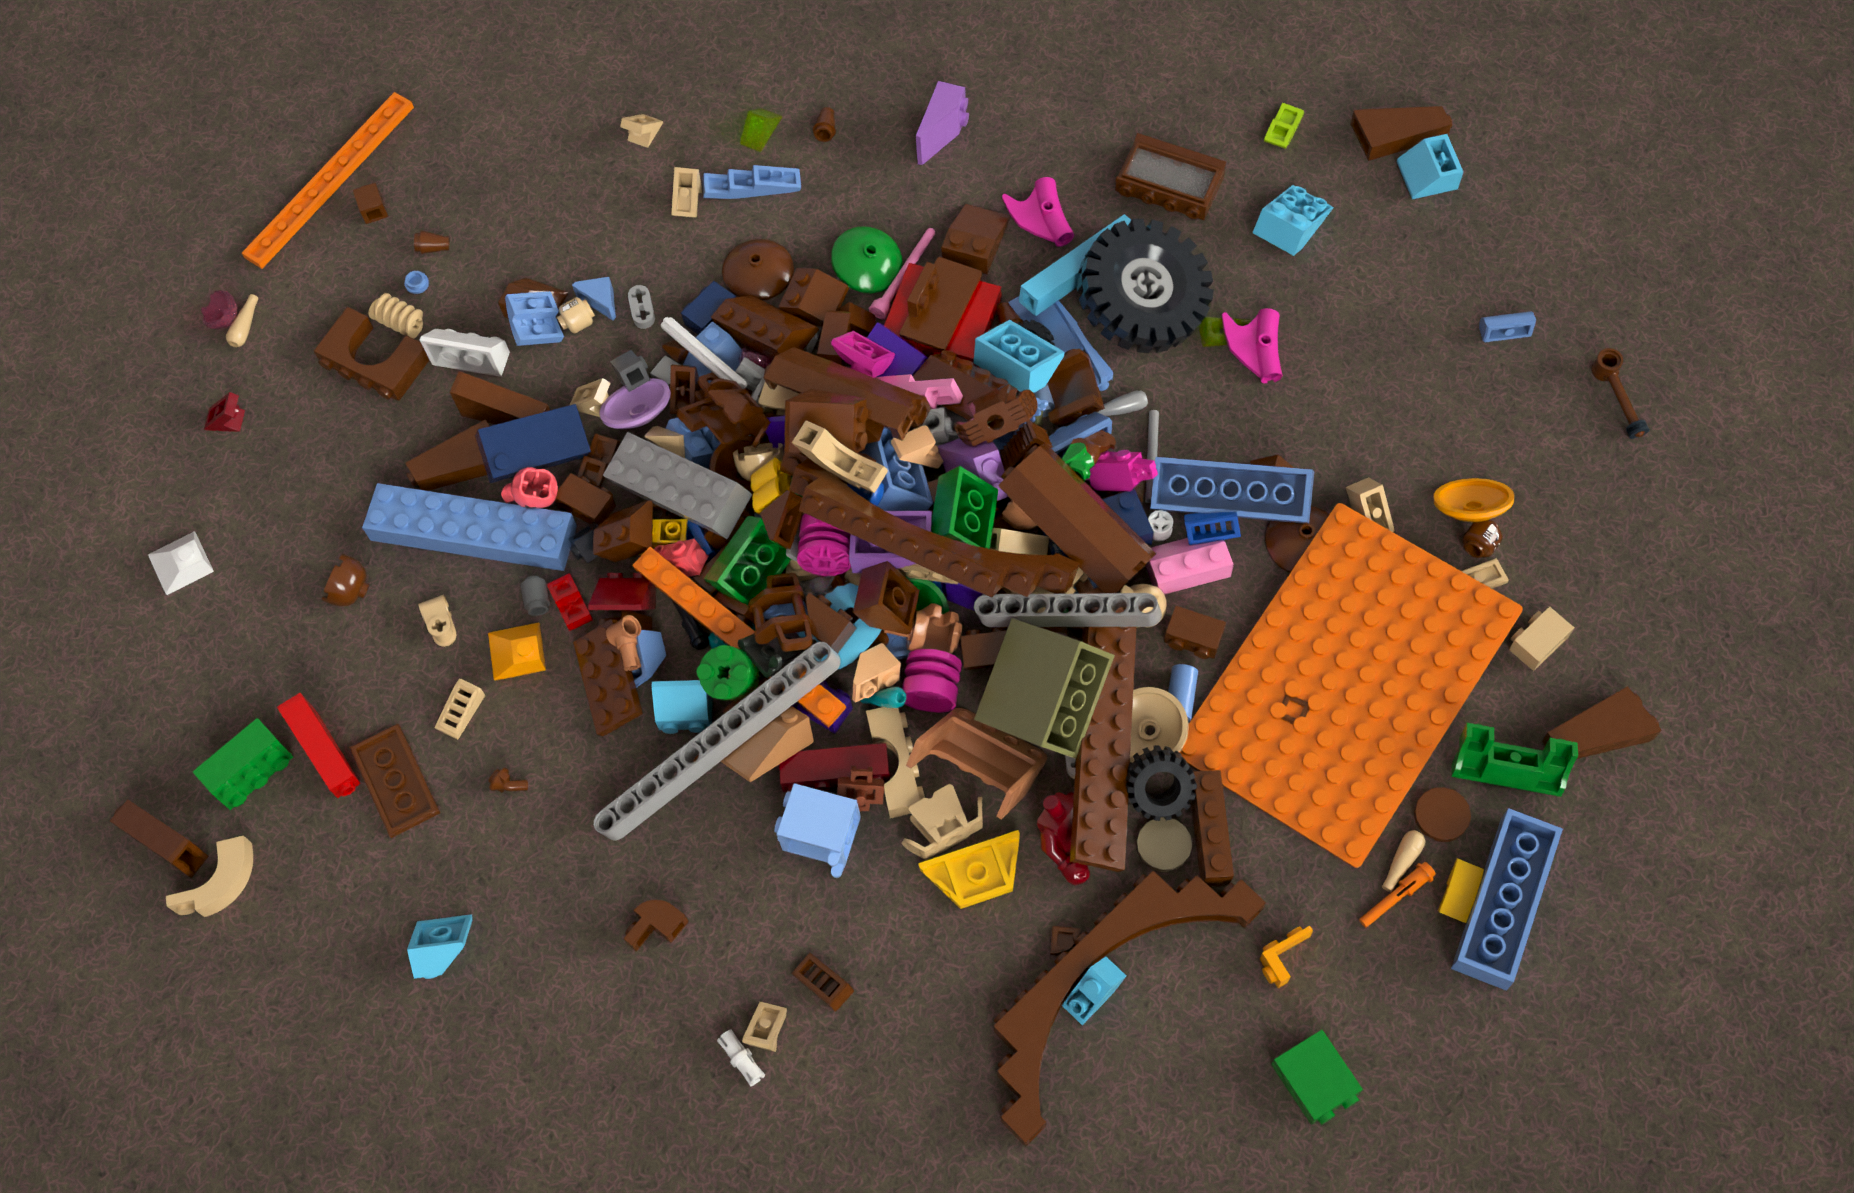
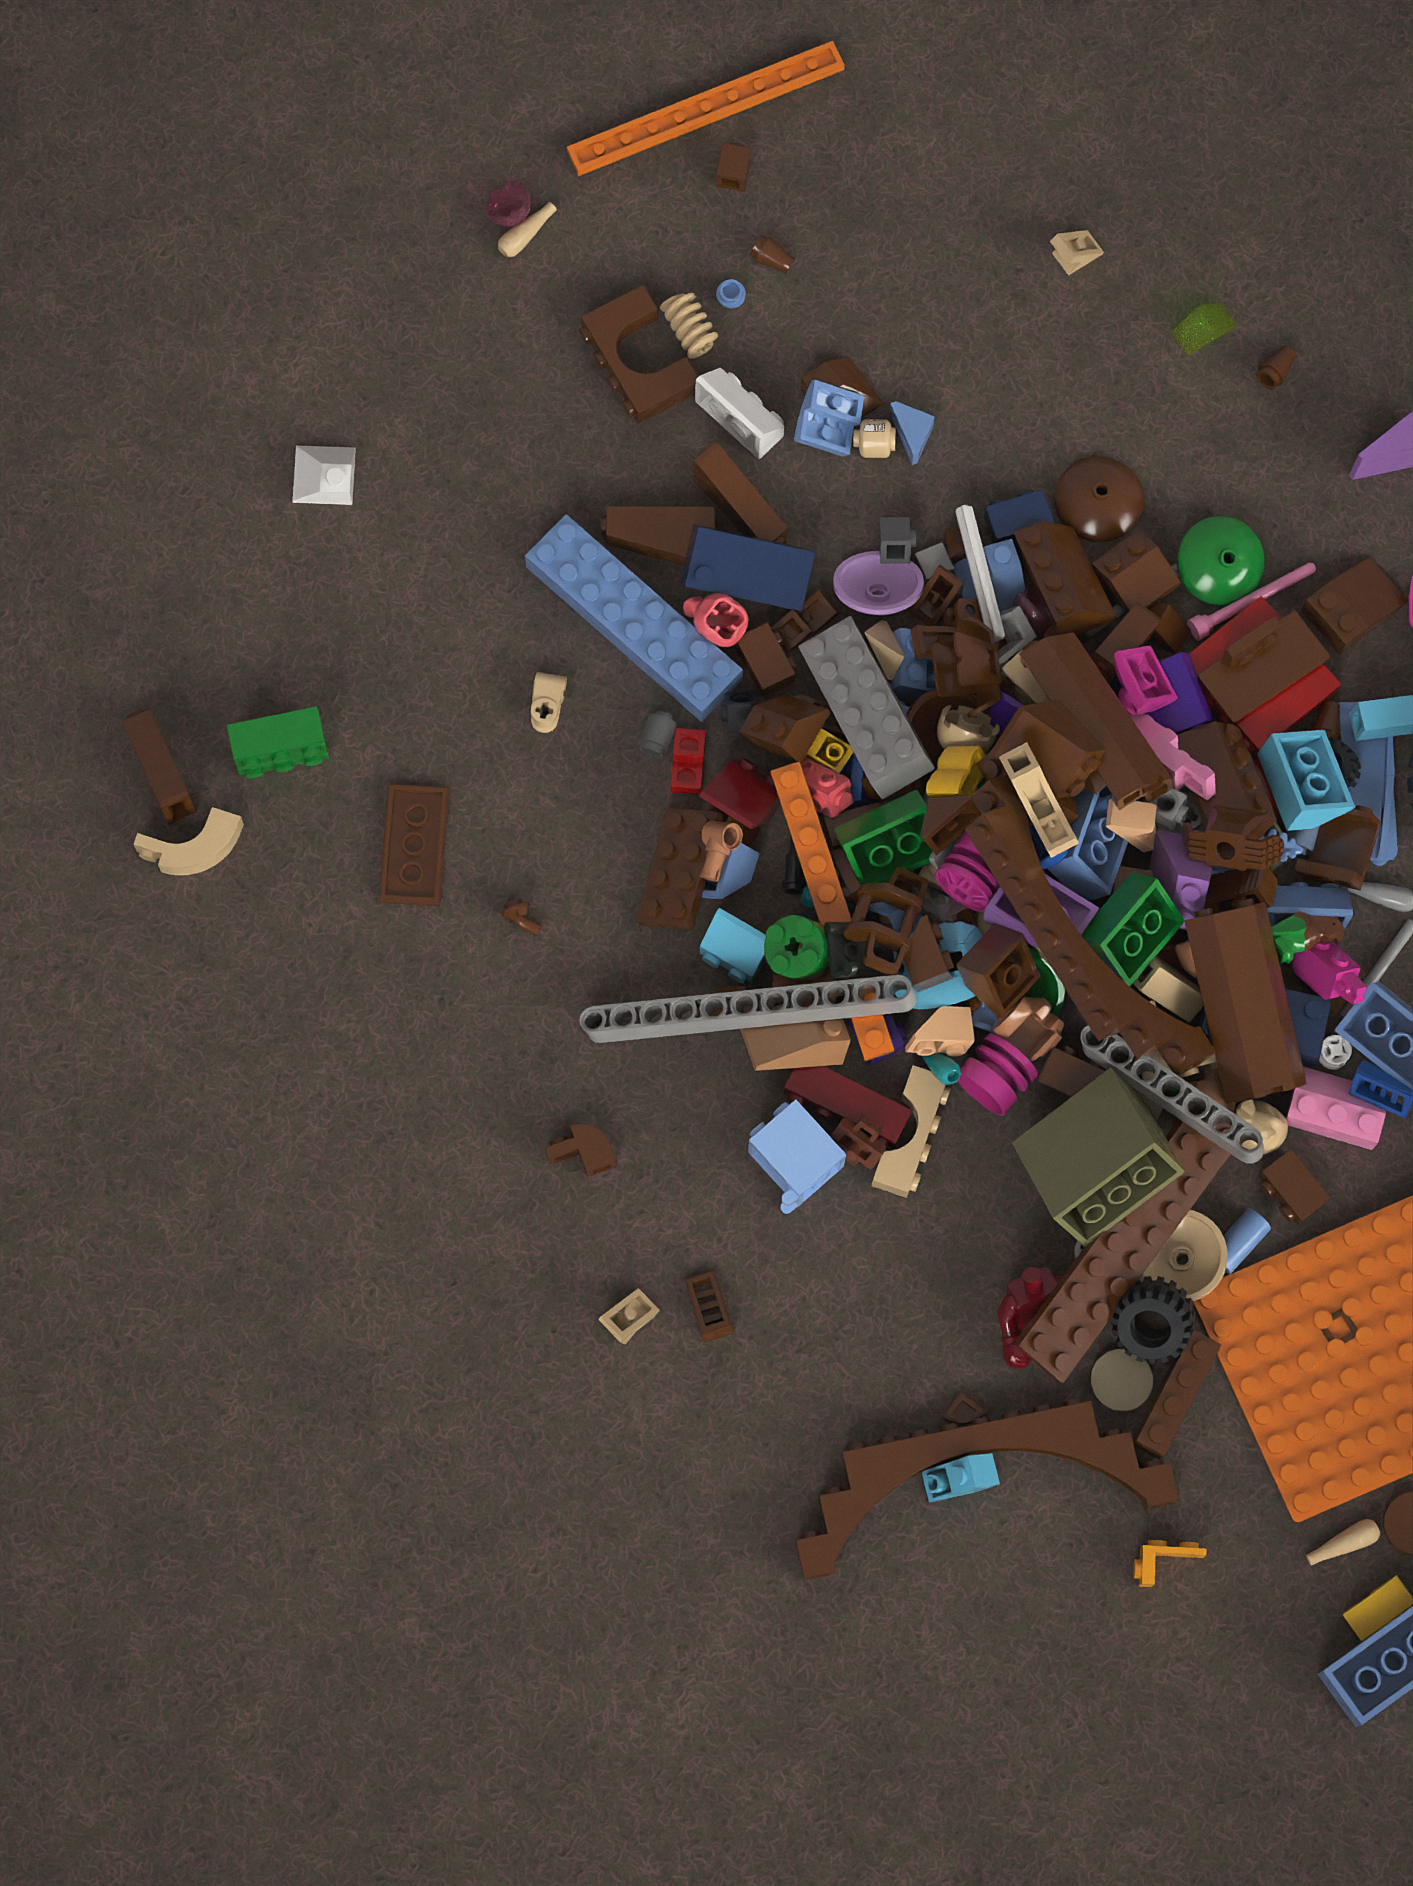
camera: 25 degrees right, 10 degrees up
(225, 415) = (451, 332): dark red slope -> none
(319, 745) = (360, 767): red slope -> none
(346, 583) = (477, 604): reddish brown cylinder -> none
(437, 944) = (368, 1041): medium azure slope -> none
(472, 704) = (531, 813): tan slope -> none
(516, 651) = (606, 781): light orange slope -> none
(591, 397) = (836, 544): tan slope -> none
(637, 307) = (944, 466): light grey beam -> none
(685, 192) = (1075, 361): tan slope -> none
(740, 1057) = (589, 1330): white pin -> none
(758, 182) = (1154, 391): medium blue slope -> none
(941, 822) = (918, 1223): tan piece -> none
(976, 871) = (921, 1291): yellow wing -> none
(985, 752) = (999, 1180): nougat windscreen -> none
(1317, 1078) = (1116, 1692): green brick -> none
(1421, 875) = (1346, 1570): orange pin -> none

